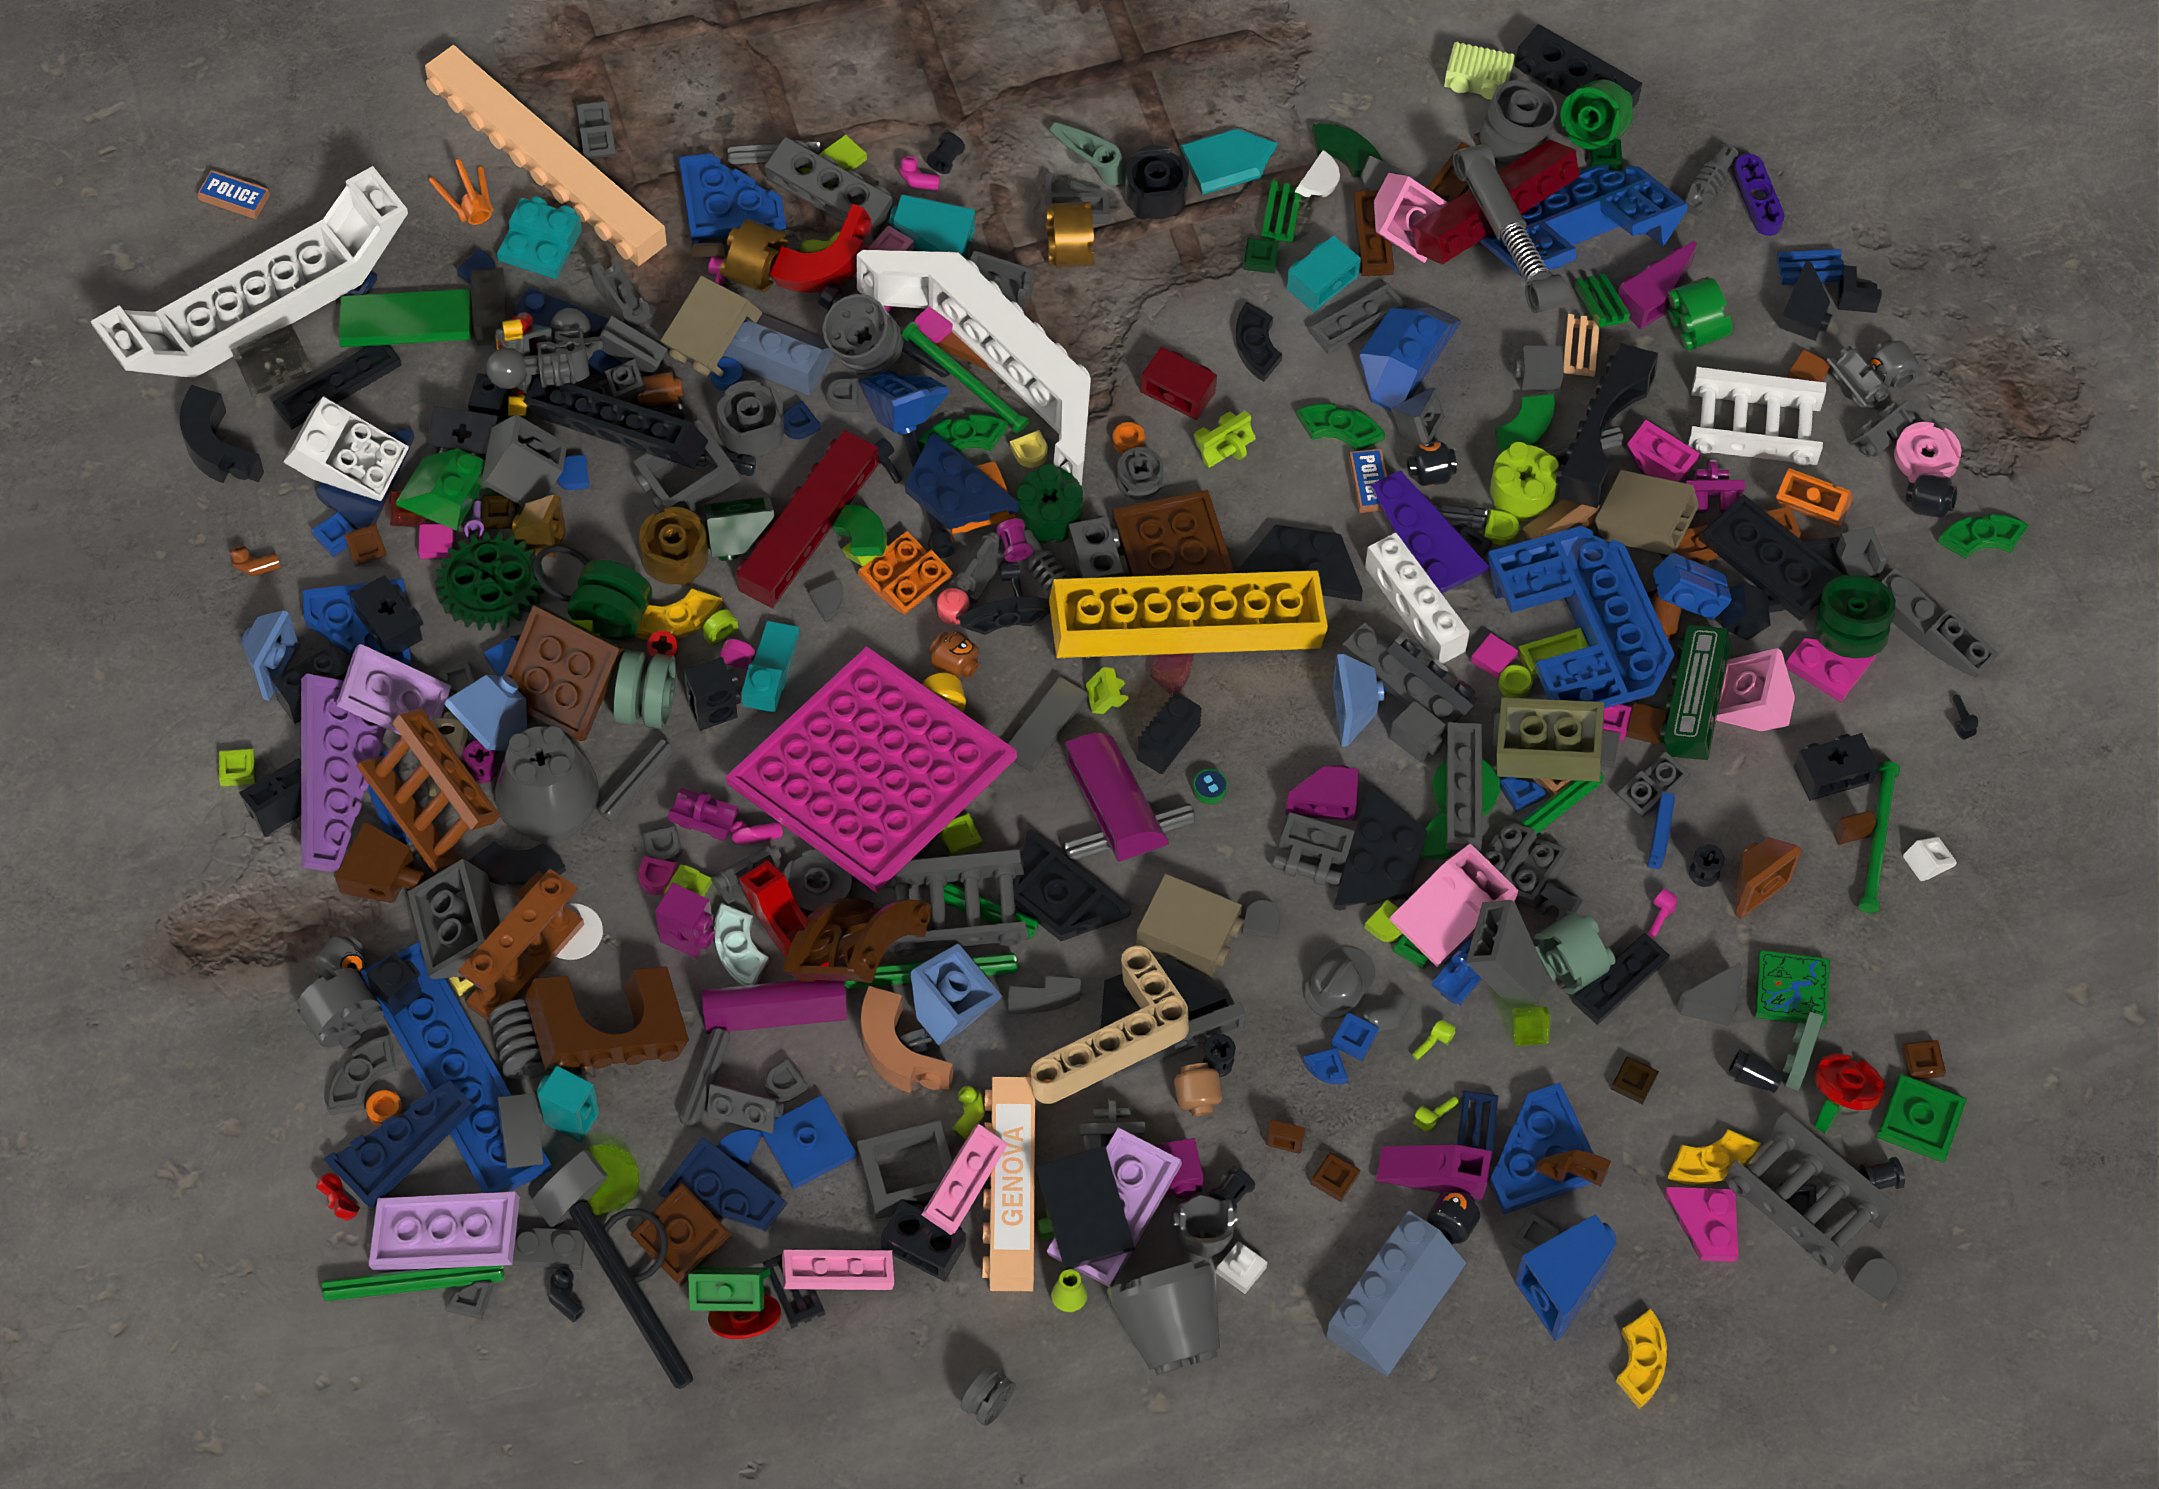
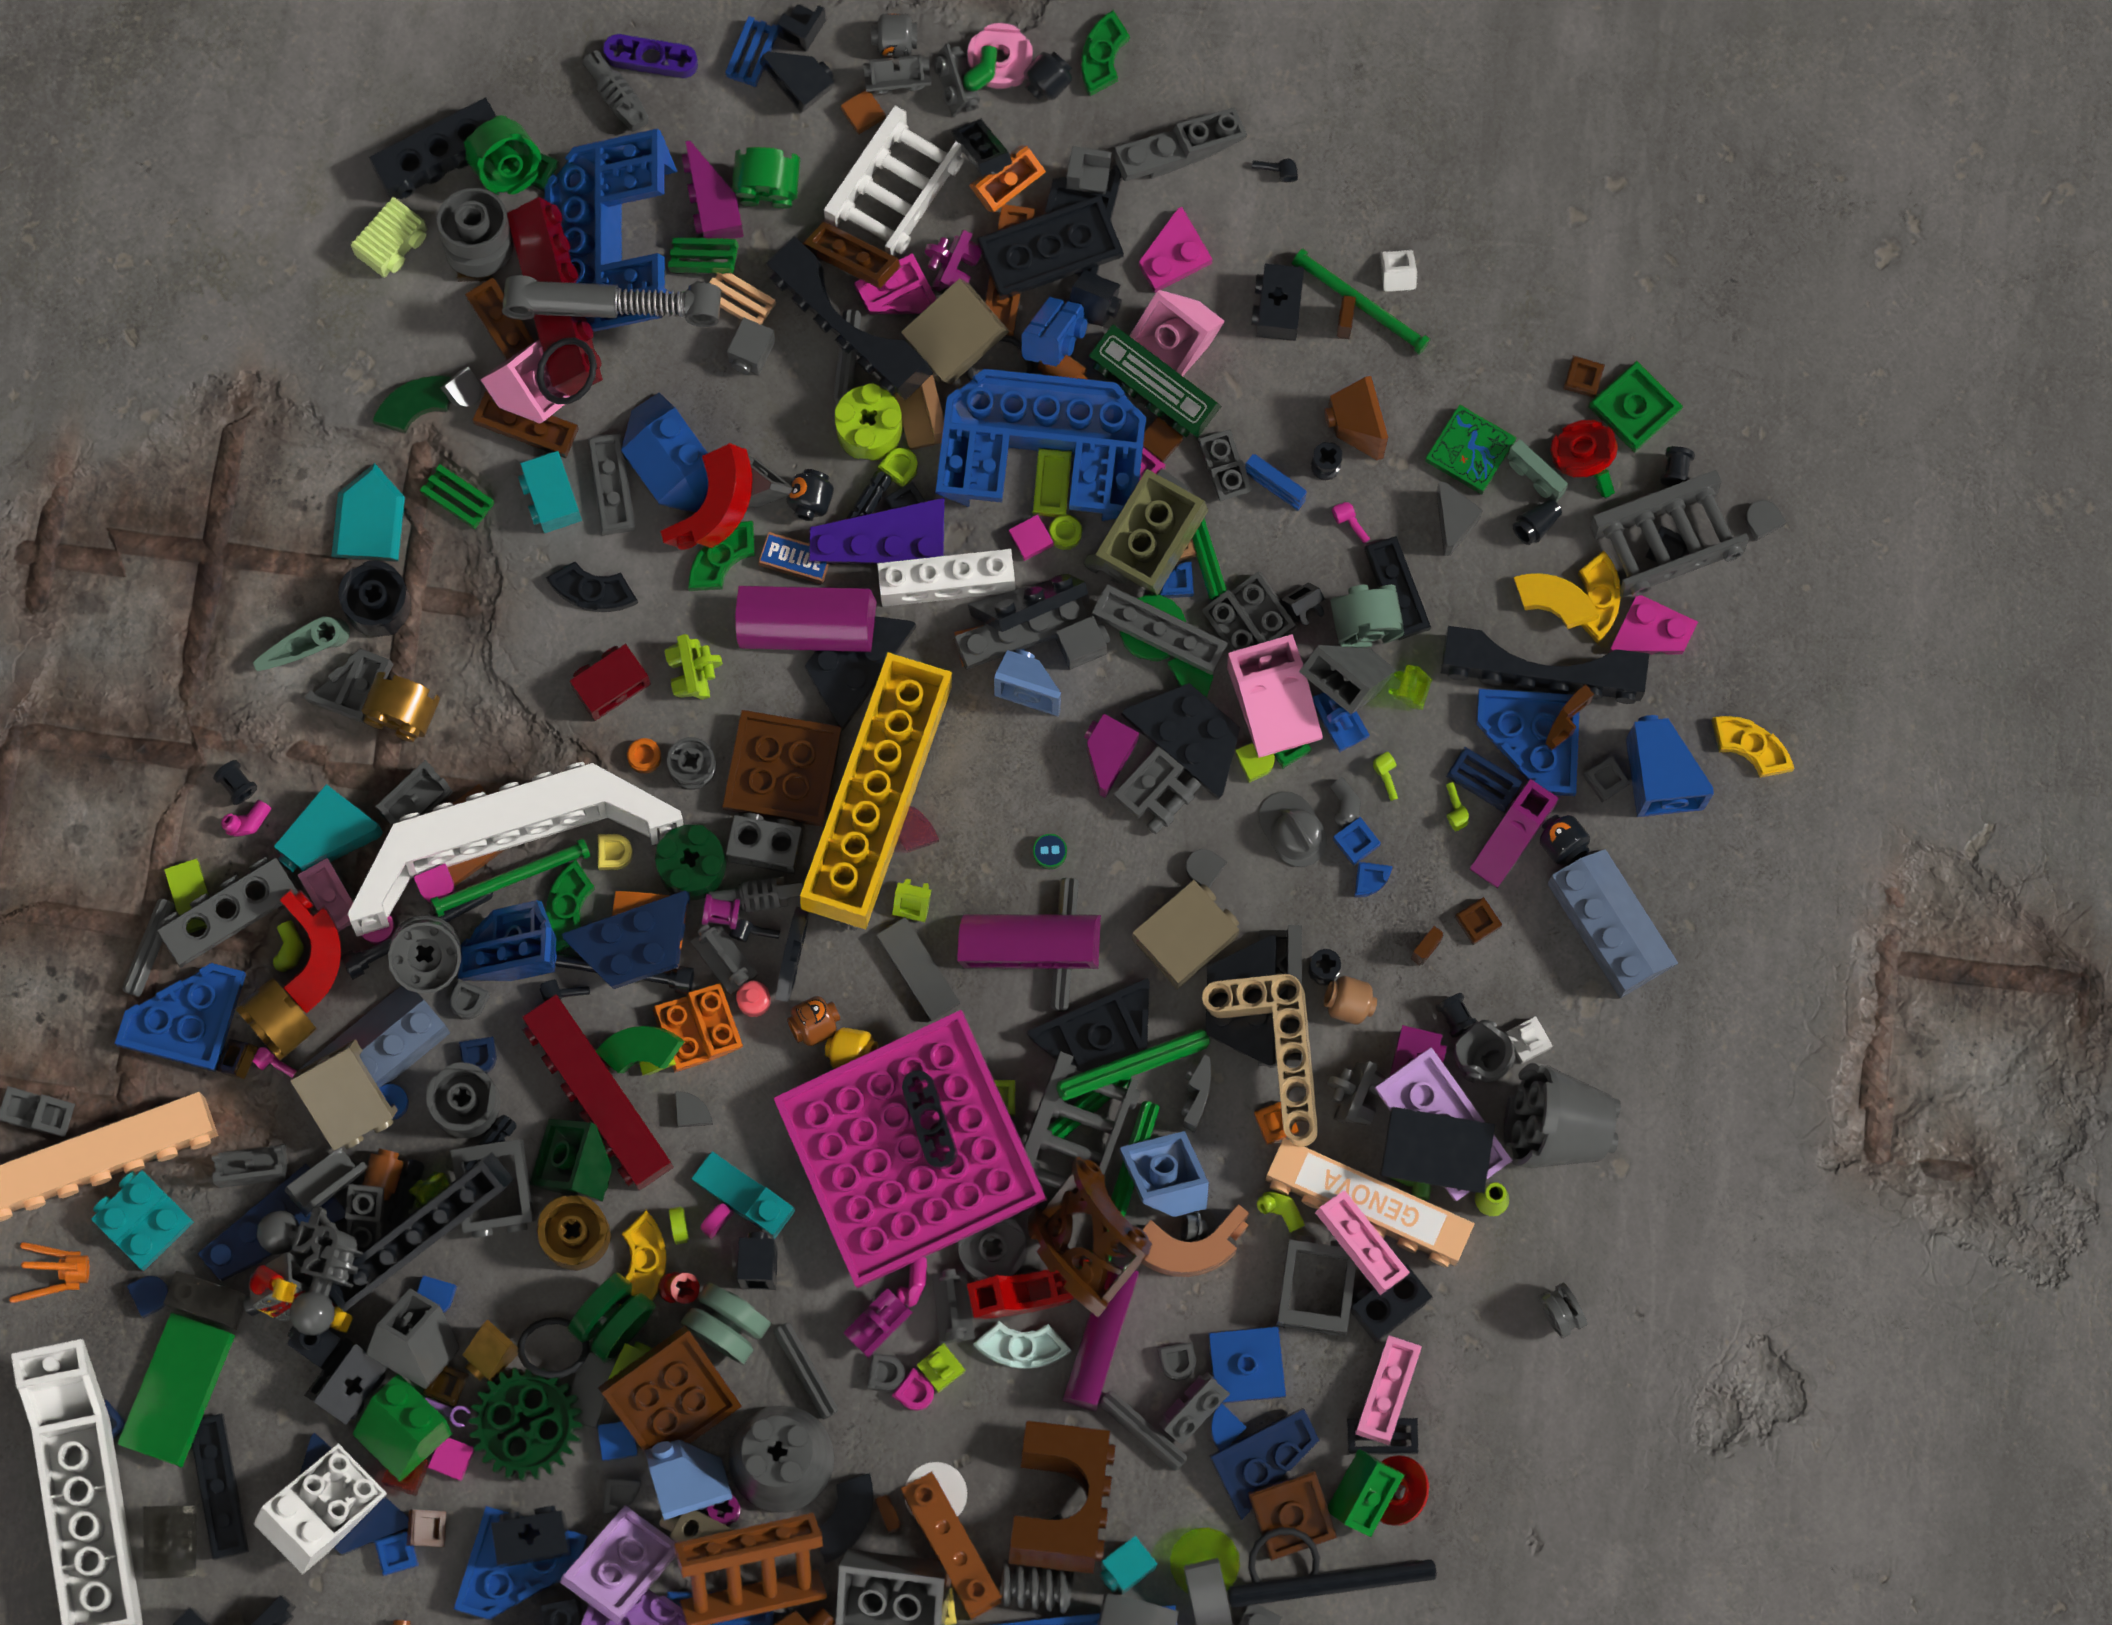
camera: 65 degrees left, 15 degrees up
(685, 921) = (989, 1383): magenta brick -> none
(898, 779) = (929, 1146): none -> black beam
(1041, 922) = (1132, 1064): none -> green axle
(1168, 732) = (984, 863): black brick -> none
(1261, 255) = (497, 539): dark green tile -> none
(1316, 501) = (805, 618): none -> magenta brick
(1321, 177) = (438, 442): white tile -> none
(1386, 392) = (725, 503): none -> red arch
(1430, 241) = (592, 371): none -> black piece
(1529, 425) = (805, 389): green tile -> none
(1634, 1080) = (1498, 623): dark brown tile -> none
(1641, 1197) = (1475, 655): none -> black arch
(1669, 406) = (852, 254): none -> reddish brown plate
(1690, 1117) = (1557, 596): none -> yellow tile
(1827, 462) = (982, 147): none -> black plate
(1855, 616) = (1146, 208): dark green wheel -> none
(1902, 440) = (983, 72): none -> green arm

